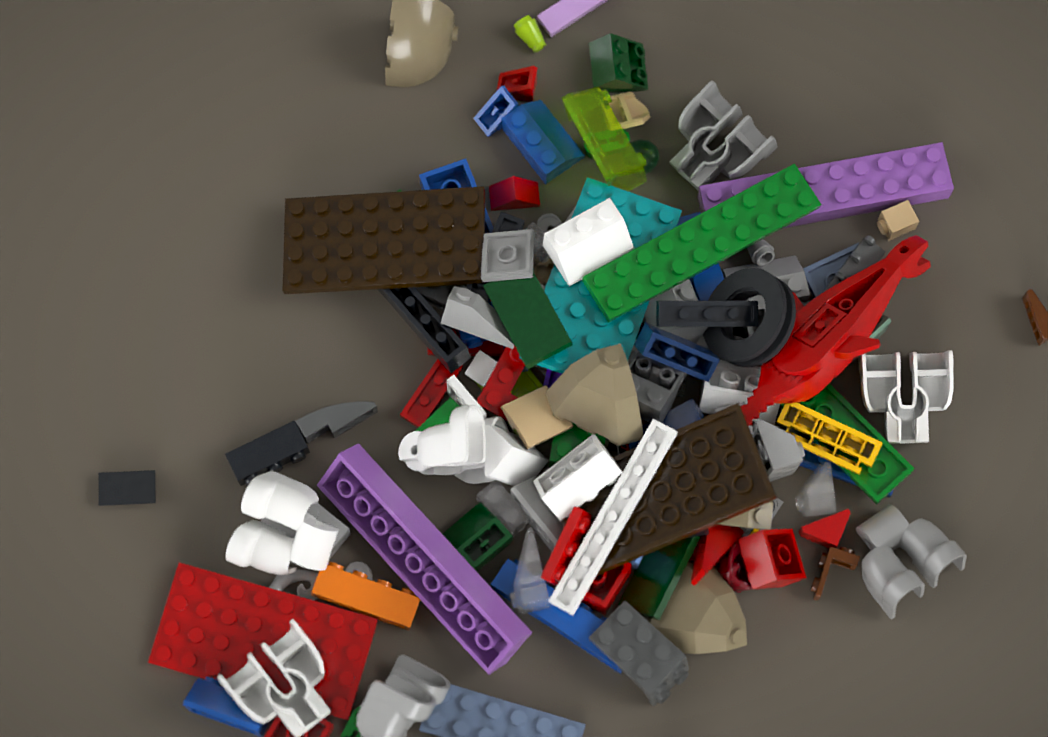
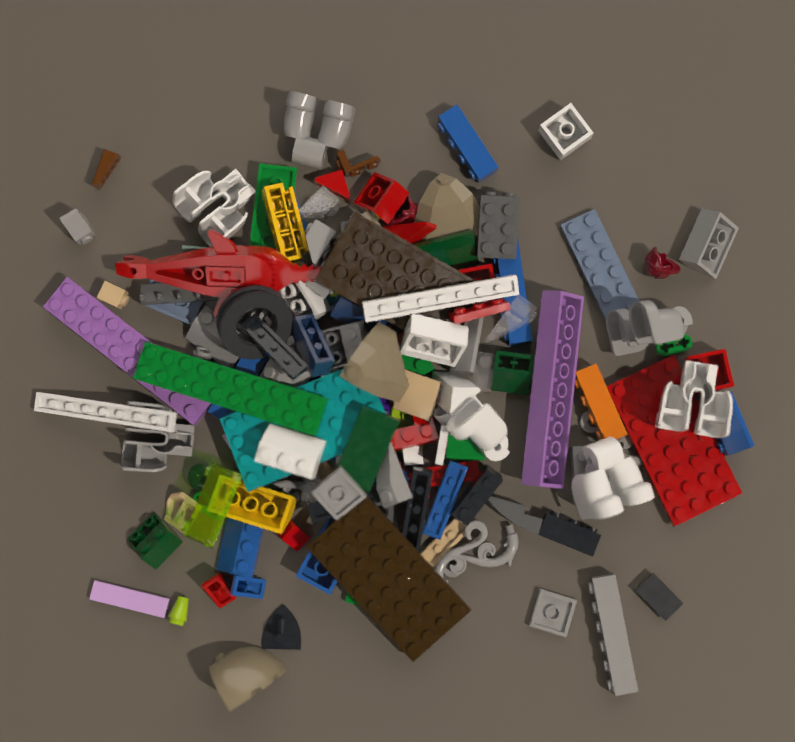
camera: 125 degrees left, 10 degrees up
(133, 411) = (613, 634): none -> light grey brick
(208, 374) = (552, 613): none -> light grey tile
(320, 350) = (507, 557): none -> light grey plant
(348, 328) = (454, 554): none -> light grey plant
(370, 331) = (451, 536): none -> tan tile
(387, 395) = (476, 494): none -> black brick
(410, 362) = (445, 500): none -> blue tile
(426, 111) = (282, 631): none -> black shield
(558, 181) = (262, 508): none -> yellow slope
(755, 702) = (467, 143): none -> blue brick
(783, 114) = (105, 412): none -> white plate
(997, 241) = (78, 226): none -> light grey slope

